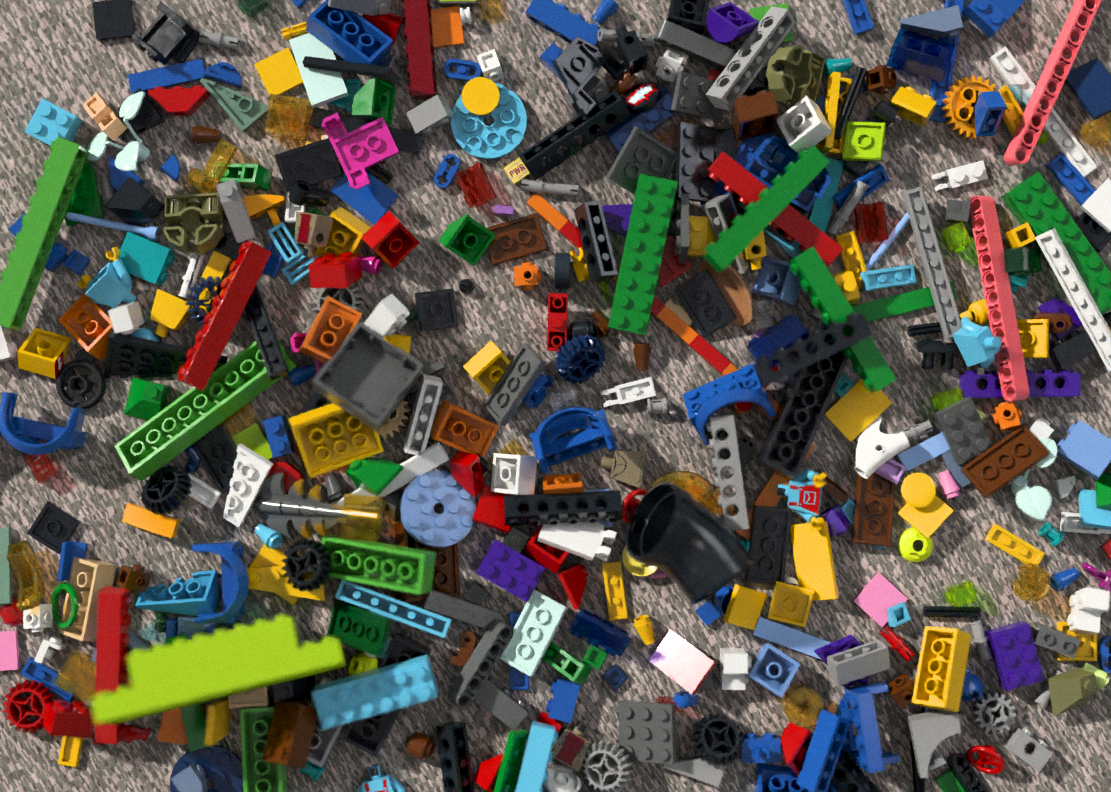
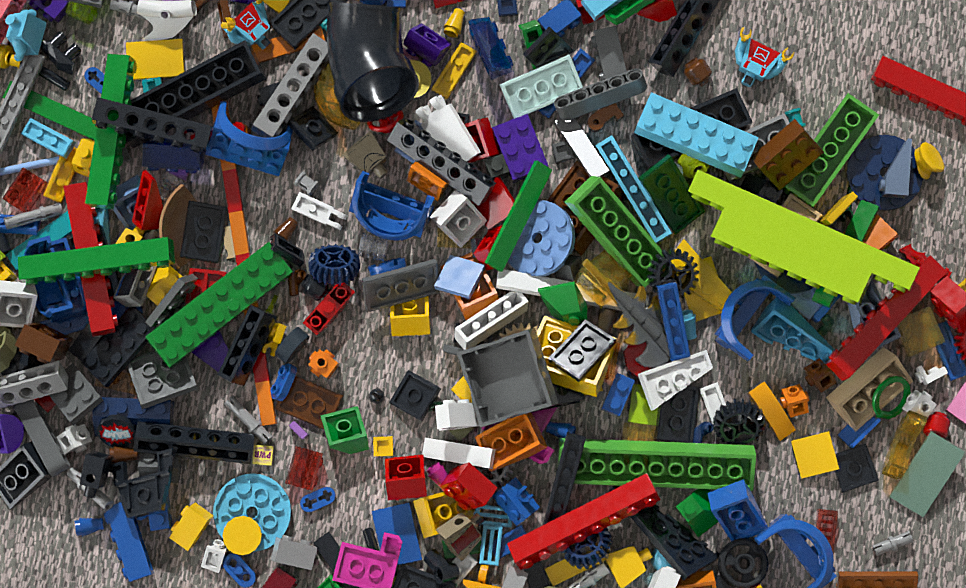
camera: 140 degrees left, 5 degrees down
(90, 513) = (815, 454): none -> yellow tile
(114, 420) = (737, 511): none -> blue slope
(137, 542) = (794, 400): none -> orange brick
(277, 527) = (673, 321): none -> blue tile
(291, 291) = (516, 501): none -> blue brick
(327, 445) = (582, 350): none -> tile
(364, 291) = (458, 453): none -> white tile
(428, 250) = (383, 446): none -> yellow tile
(465, 513) = (518, 216): none -> green tile
(474, 428) = (459, 276): none -> tile
(525, 71) = (191, 526): none -> yellow brick
(546, 238) = (283, 382): none -> blue plate
(552, 667) = (547, 48): none -> black wing
(574, 582) = (479, 98): red slope -> none
(595, 657) = (509, 33): green tile -> none
(626, 340) = (287, 250): none -> black tile
(652, 594) = (427, 44): none -> dark purple brick
(687, 453) = (312, 128): none -> black tile
(764, 287) = (148, 204): none -> red slope
(890, 350) = (97, 85): none -> blue beam

